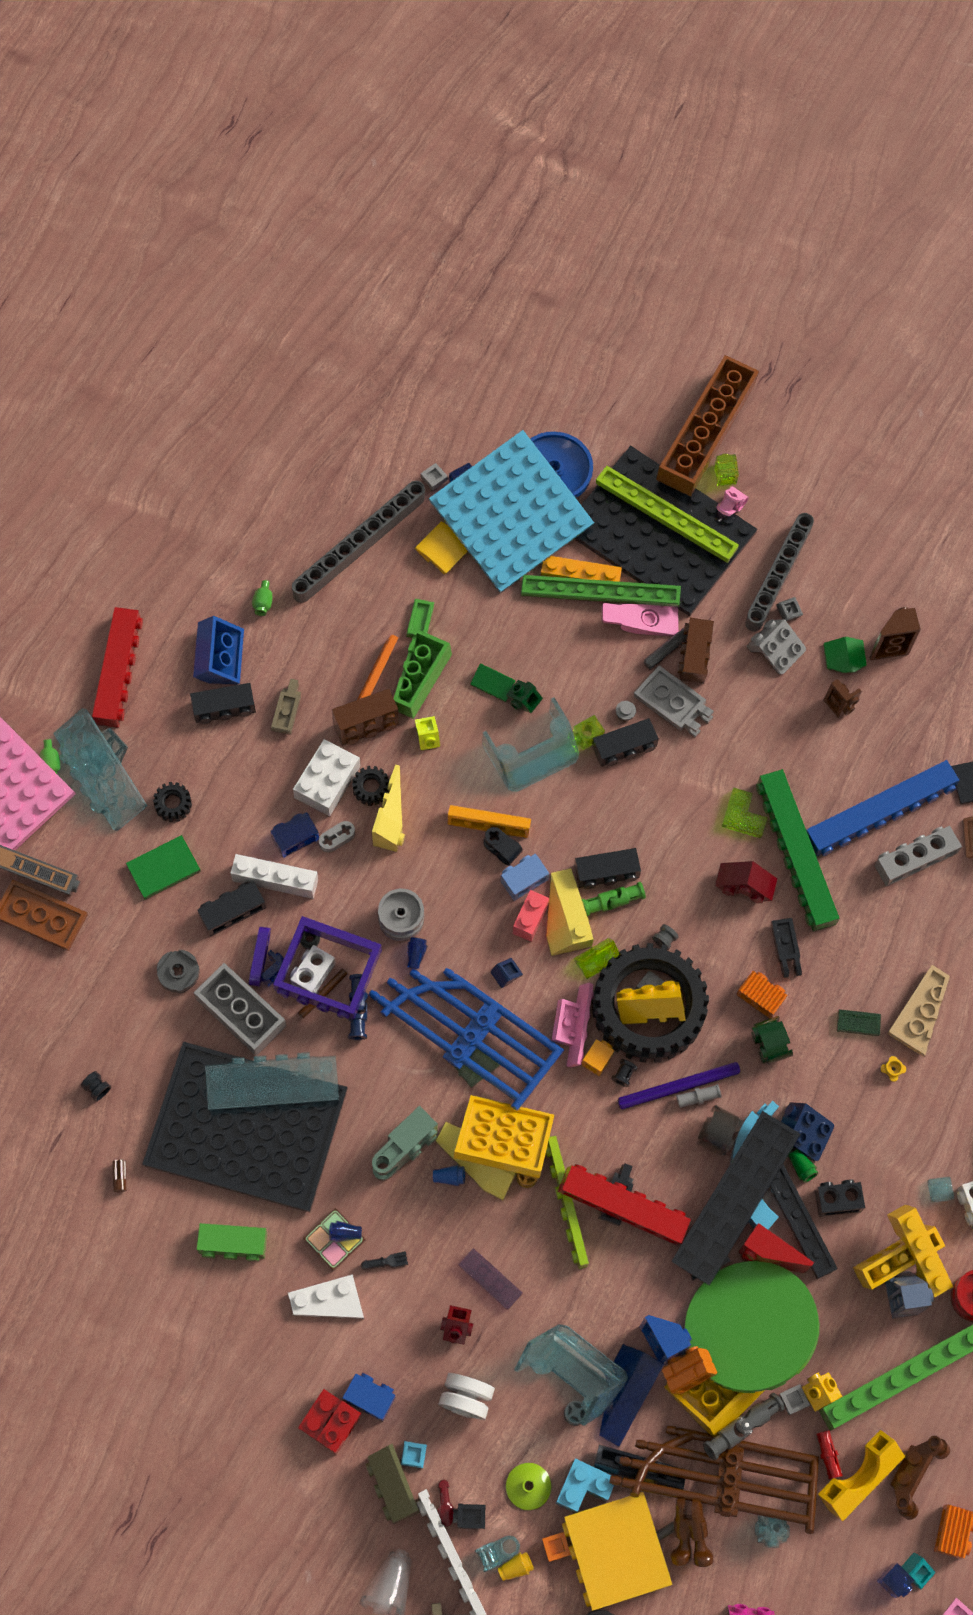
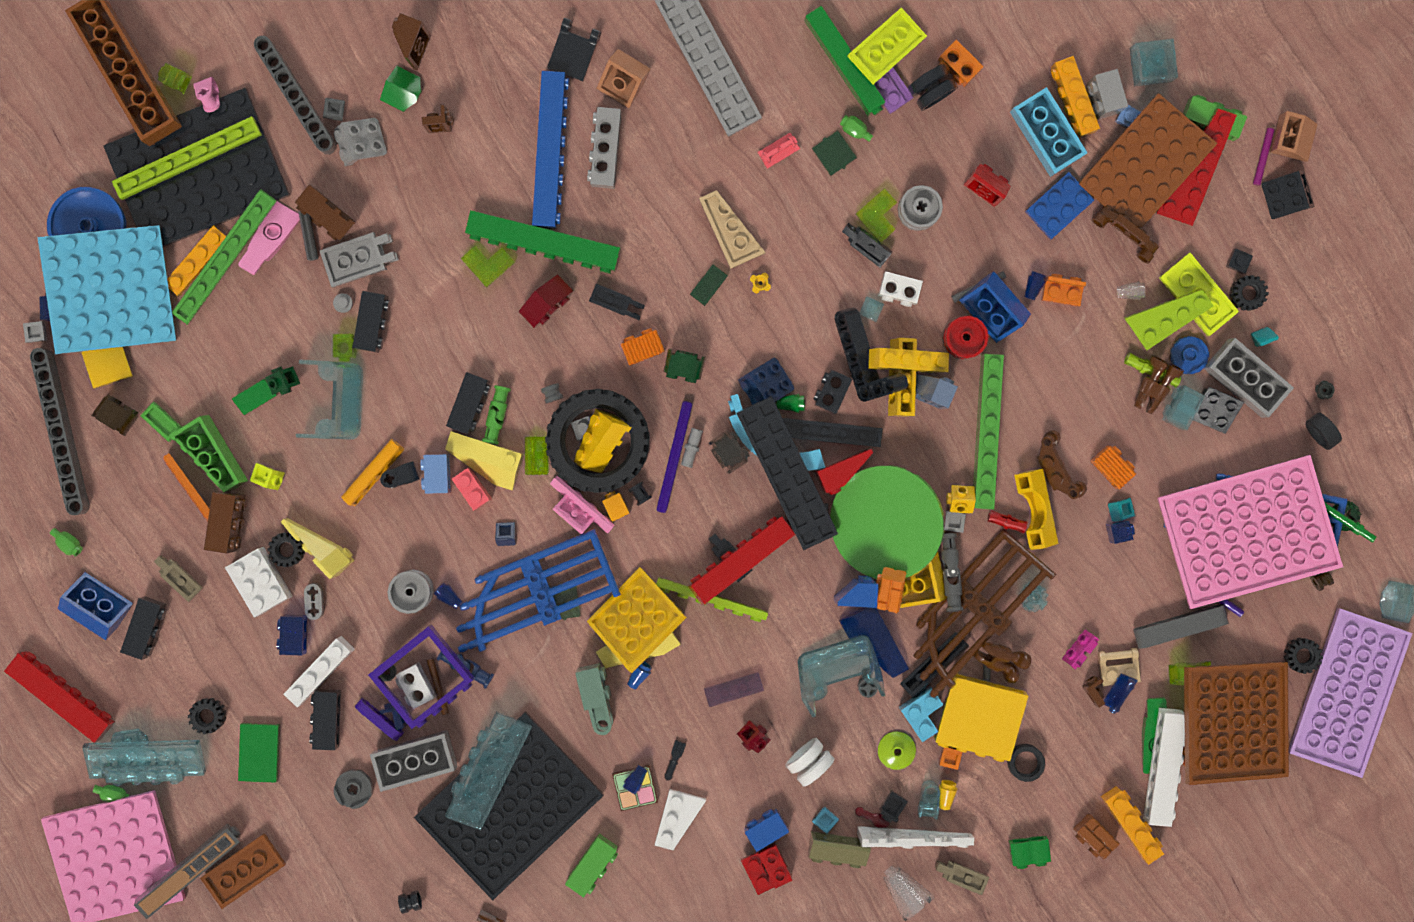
camera: 60 degrees left, 20 degrees up
(404, 576) = (114, 415): none -> dark brown brick
(873, 1225) = (856, 350): none -> black beam

